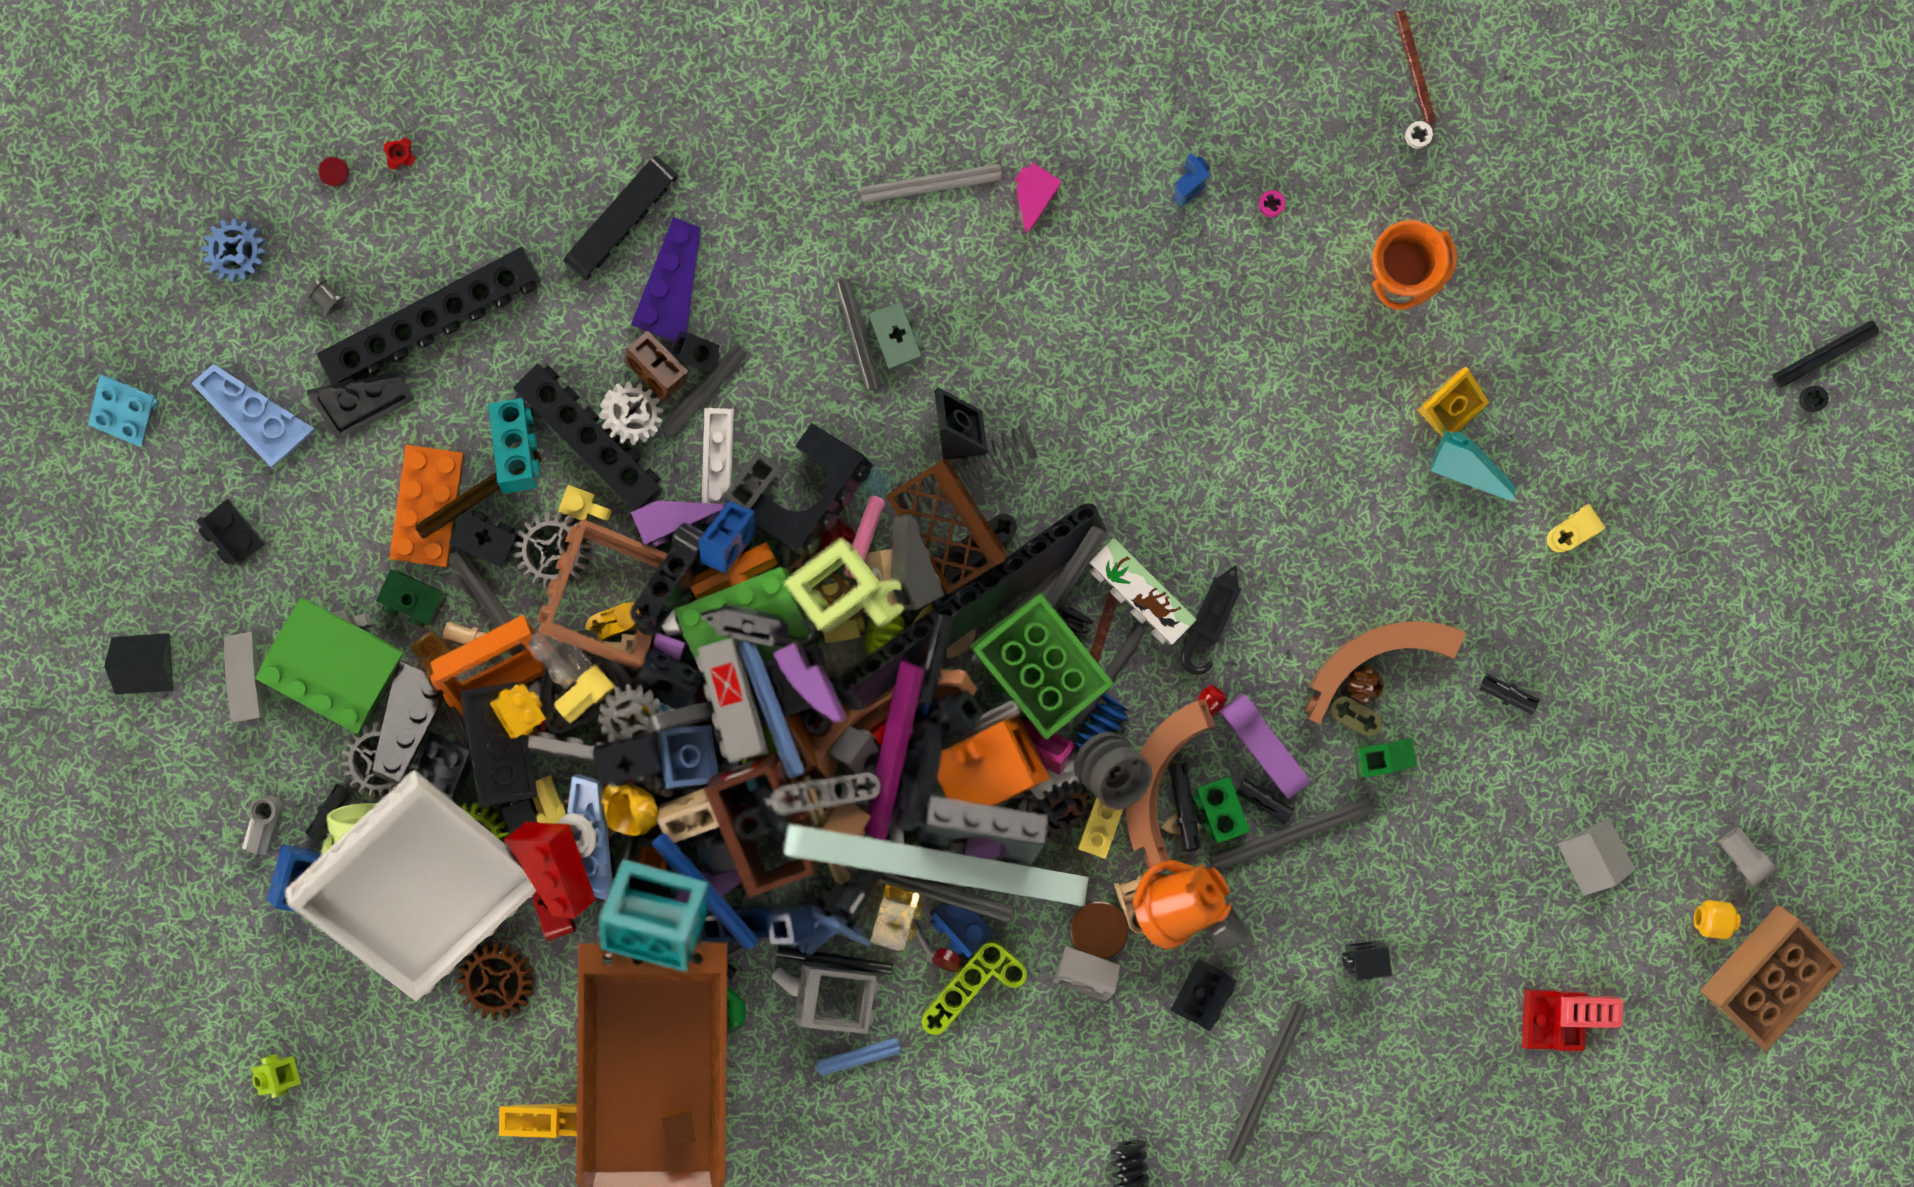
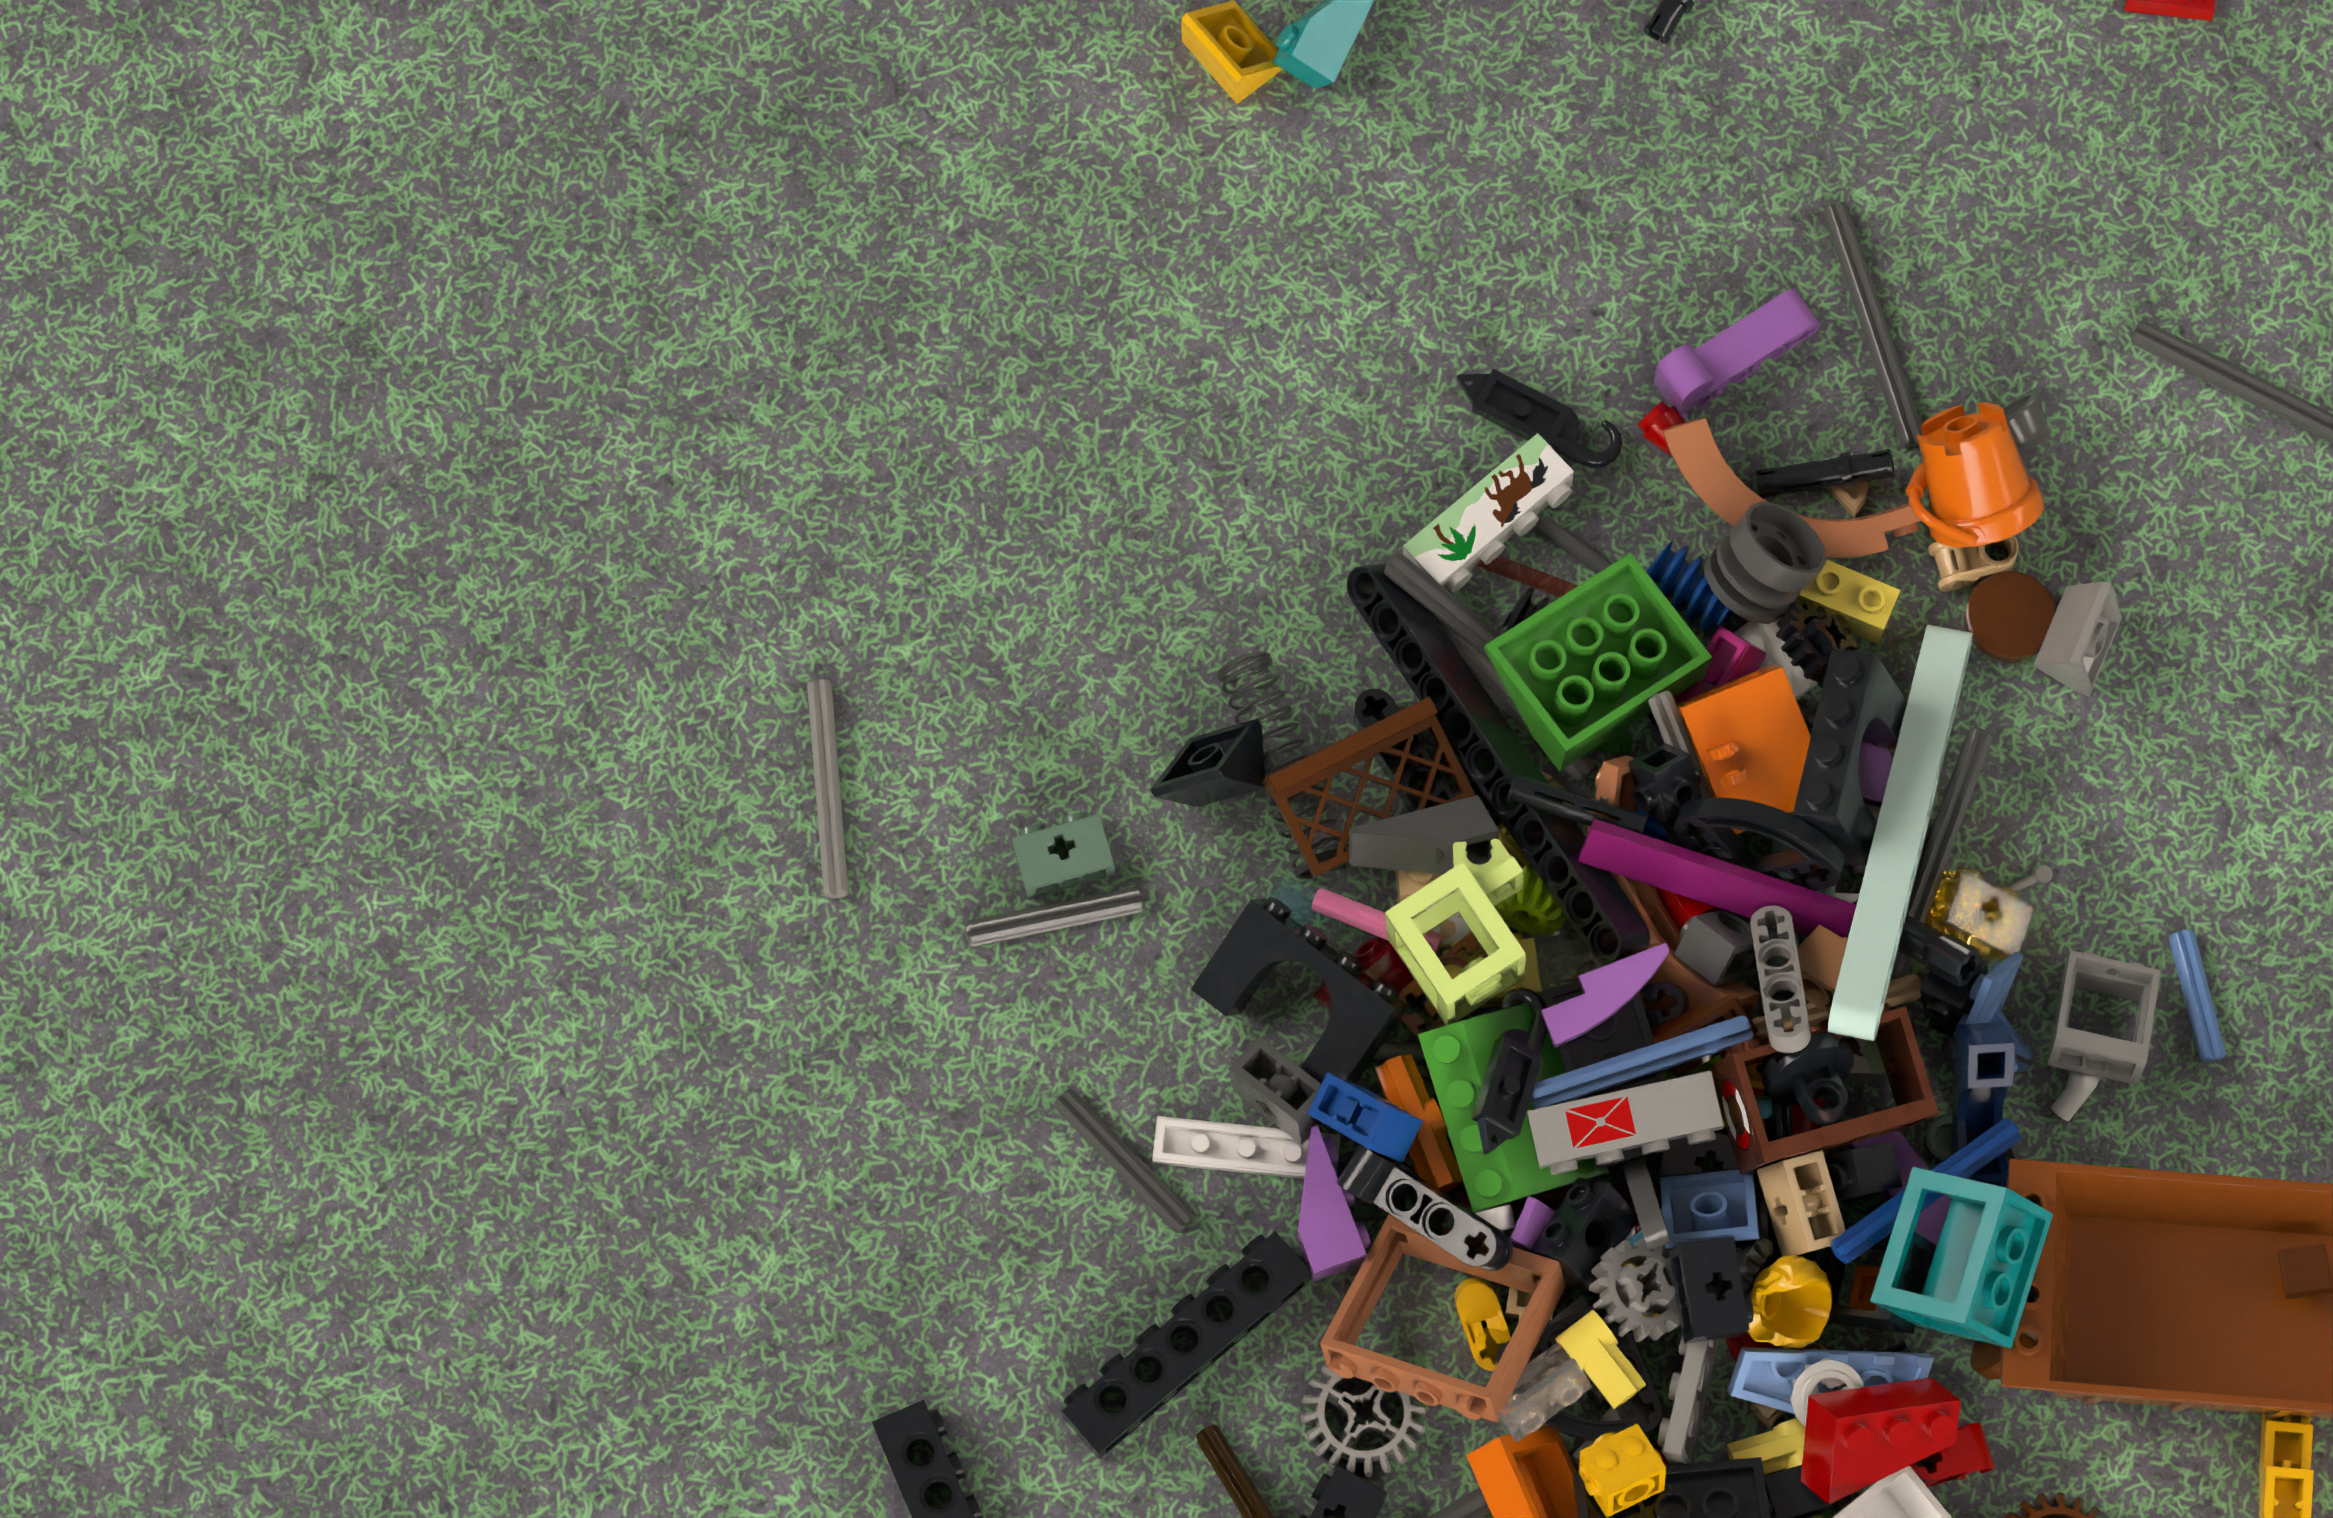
camera: 90 degrees left, 15 degrees down
(507, 433) = (1209, 1471): teal brick -> none
(581, 504) = (1292, 1368): light yellow plate -> none
(619, 217) = (839, 1268): black beam -> none
(636, 426) = (1153, 1272): white gear -> none
(656, 366) = (1081, 1225): reddish brown brick -> none
(669, 291) = (956, 1202): dark purple wing -> none
(685, 347) = (1063, 1163): black brick -> none
(835, 960) = (2043, 1021): black bar -> none
(947, 960) = (2049, 846): dark red tile -> none
(962, 926) = (1995, 822): blue bracket -> none
(969, 990) = (2099, 815): lime beam -> none
(1034, 193) = (860, 631): dark pink slope -> none
(1193, 181) = (857, 382): blue bracket -> none
(1204, 995) = (2117, 465): black bracket -> none
(1227, 806) = (1826, 412): green brick -> none
(1265, 801) = (1822, 359): black pin -> none
(1276, 195) = (893, 282): dark pink bush -> none
(1351, 722) = (1690, 215): olive beam -> none
(1365, 685) = (1651, 200): reddish brown gear -> none
(1367, 960) = (2072, 221): black brick -> none
(1384, 638) = (1590, 190): nougat arch -> none
(1385, 757) = (1764, 182): green slope -> none
(1413, 262) = (1018, 83): orange piece -> none
(1415, 67) = (718, 69): clear red bar -> none
(1422, 126) = (834, 73): white bush -> none

